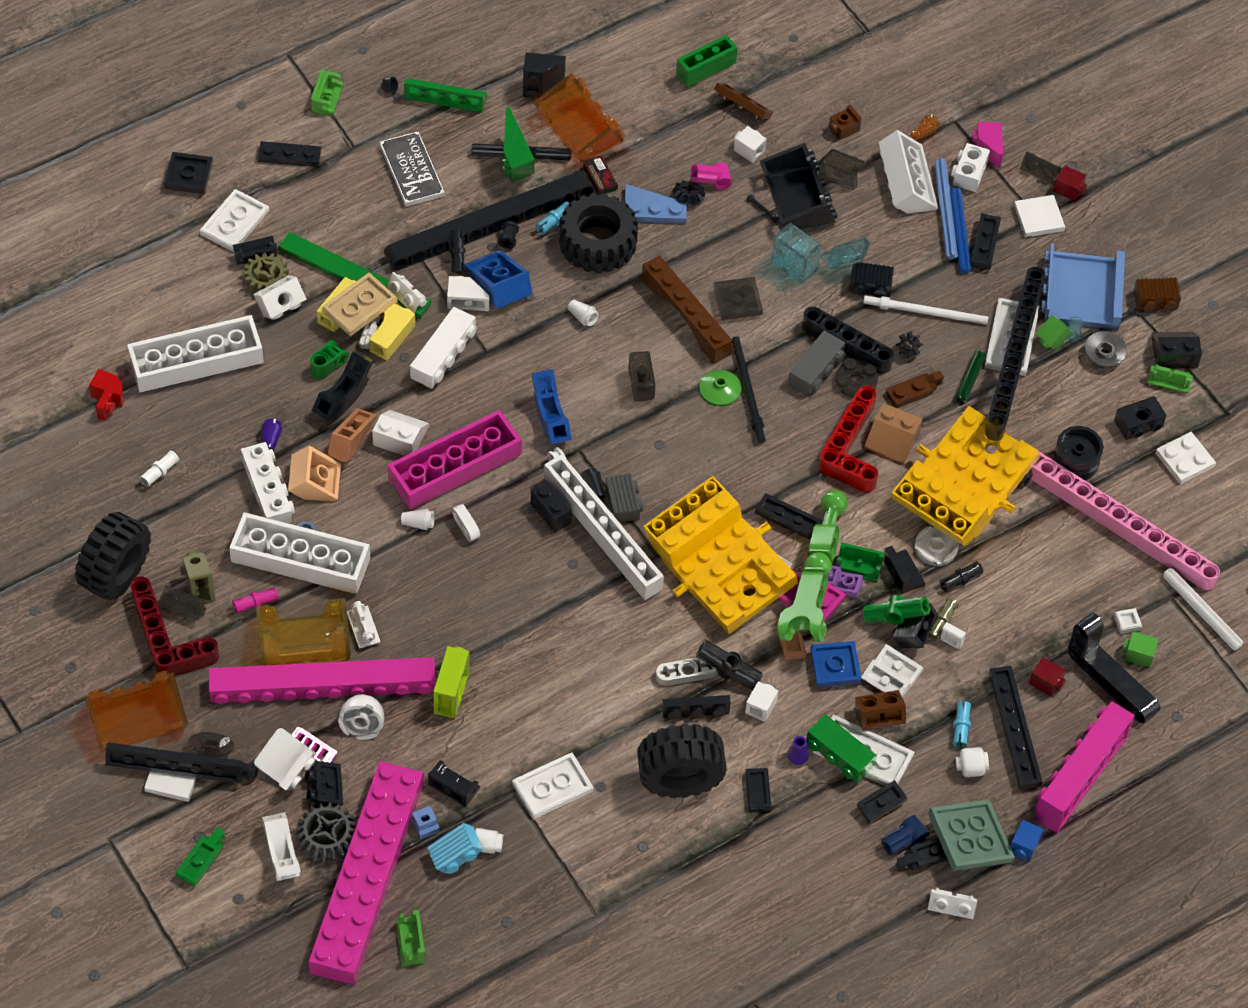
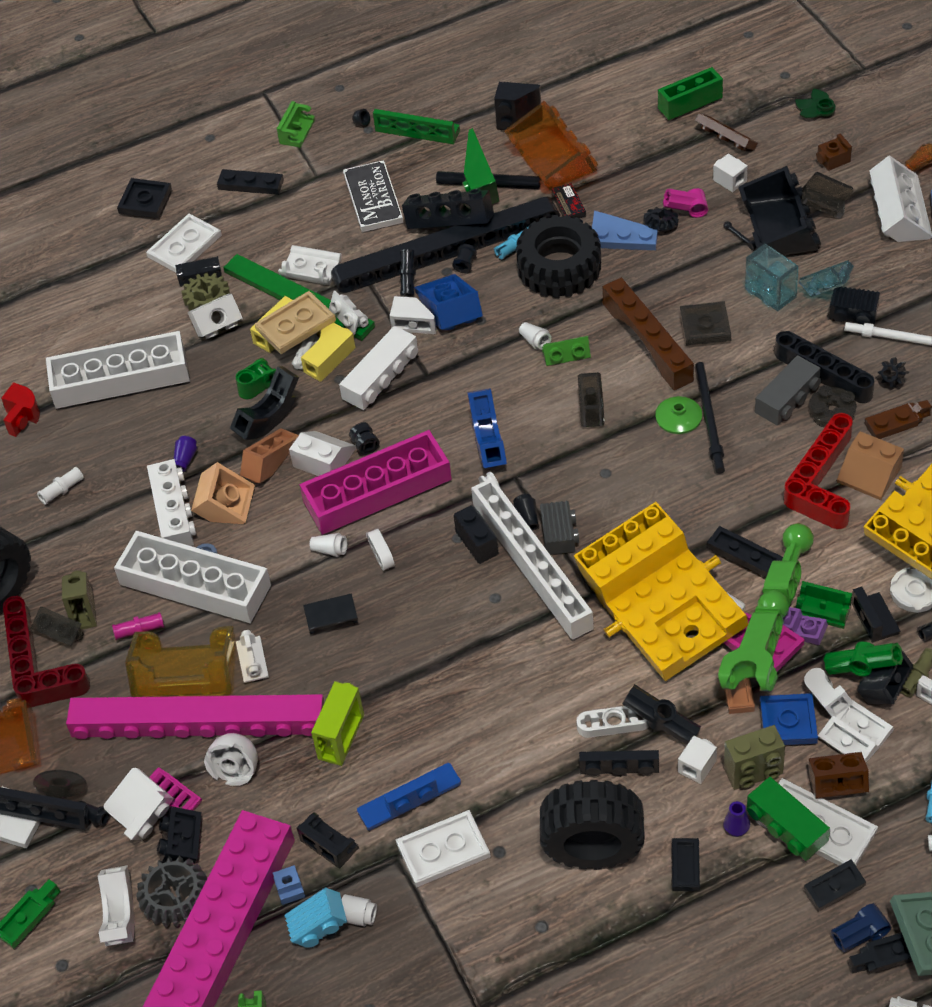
camera: 15 degrees right, 5 degrees down
(361, 242) = (310, 265): none -> white piece
(429, 583) = (330, 612): none -> black hinge
(435, 414) = (363, 437): none -> black wheel
(499, 191) = (439, 216): none -> black brick
(518, 742) = (408, 796): none -> blue bracket
(613, 327) = (566, 350): none -> bright green hinge
(810, 698) = (754, 757): none -> olive brick
(825, 72) = (817, 106): none -> dark green plate
(870, 645) = (822, 688): none -> white leg

